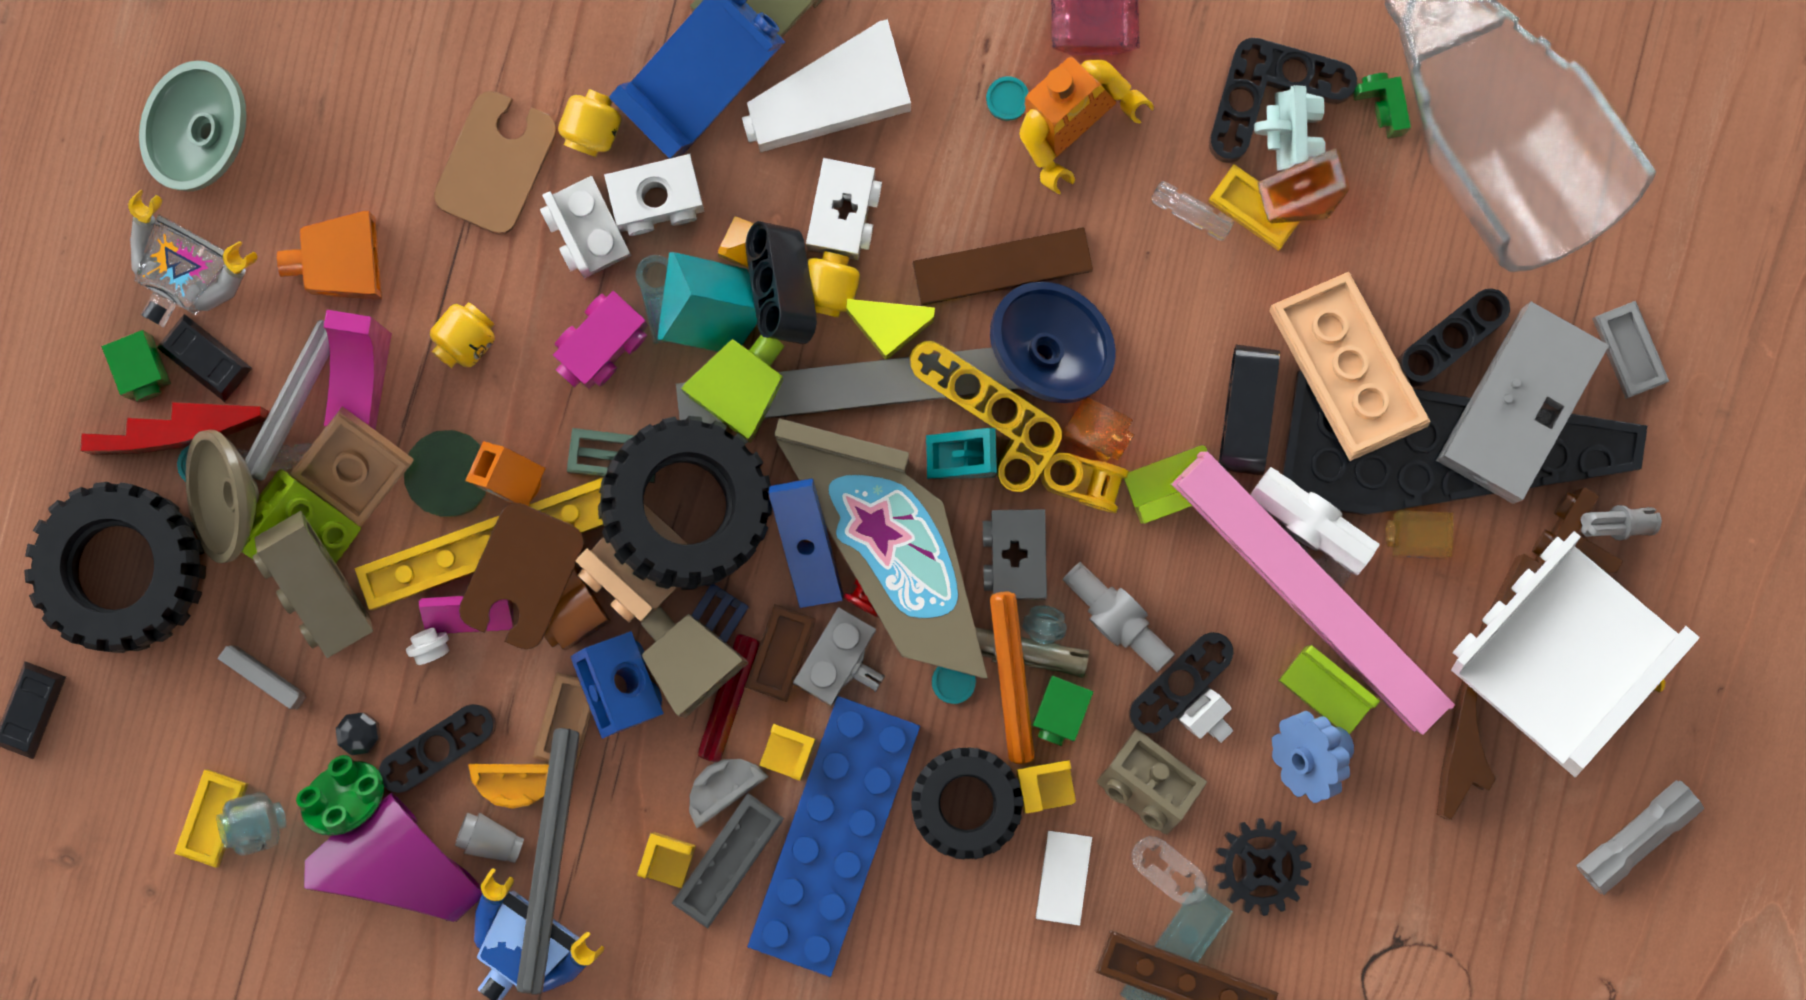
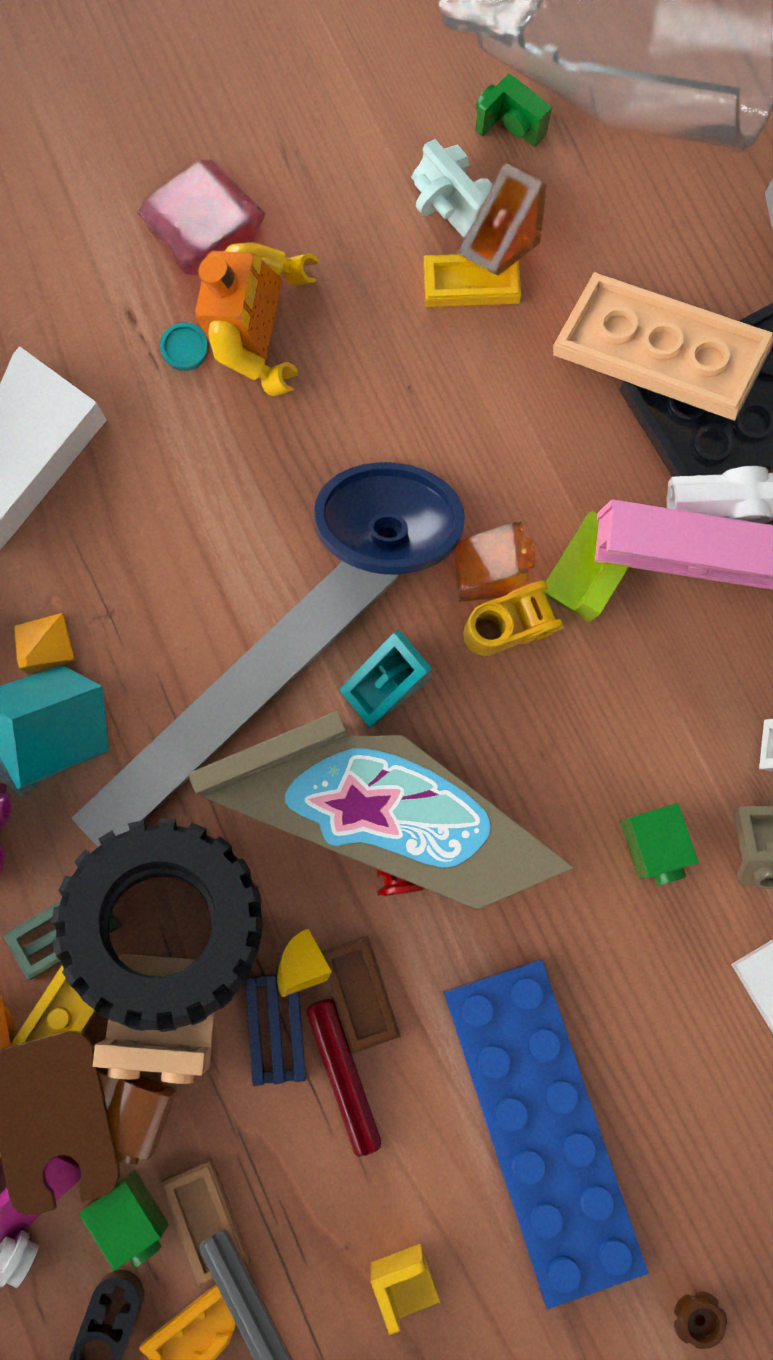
camera: 40 degrees left, 5 degrees down
(517, 678) = (125, 1223): none -> green brick
(609, 706) = (238, 1181): blue brick -> none
(688, 660) = (277, 1075): dark tan torso -> none
(721, 786) = (401, 1167): light grey tile -> none
(728, 860) = (463, 1239): dark grey plate -> none
(738, 385) = (128, 773): lime torso -> none
(757, 603) = (301, 965): none -> yellow tile
(780, 283) = (98, 650): black beam -> none
(787, 752) = (439, 1084): yellow panel -> none
(813, 562) = (323, 889): blue tile -> none
(832, 283) = (145, 620): yellow head -> none
(838, 183) = (87, 524): white brick -> none
(838, 659) = (417, 957): light grey plate -> none
(889, 324) = (228, 614): neon yellow slope -> none
(952, 685) = (540, 900): teal piece -> none
(981, 406) = (369, 622): yellow beam -> none
(1002, 266) = (290, 490): reddish brown tile -> none
(1006, 803) = (688, 1009): black tyre -> none
(1012, 677) = (592, 847): orange axle -> none
(1029, 531) = (504, 705): dark grey brick -> none
(1039, 655) = (609, 801): dark tan pin -> none
(1045, 624) = (581, 776): clear light blue plate -> none
(1046, 786) = (698, 925): yellow panel -> none
(1118, 617) = (641, 718): light grey pin -> none
(1192, 210) = (419, 321): clear axle -> none
(1197, 652) = (733, 697): black beam -> none
(1249, 409) = (605, 445): black beam -> none
(1271, 75) = (395, 163): black beam -> none
(1471, 328) = (735, 240): black beam -> none

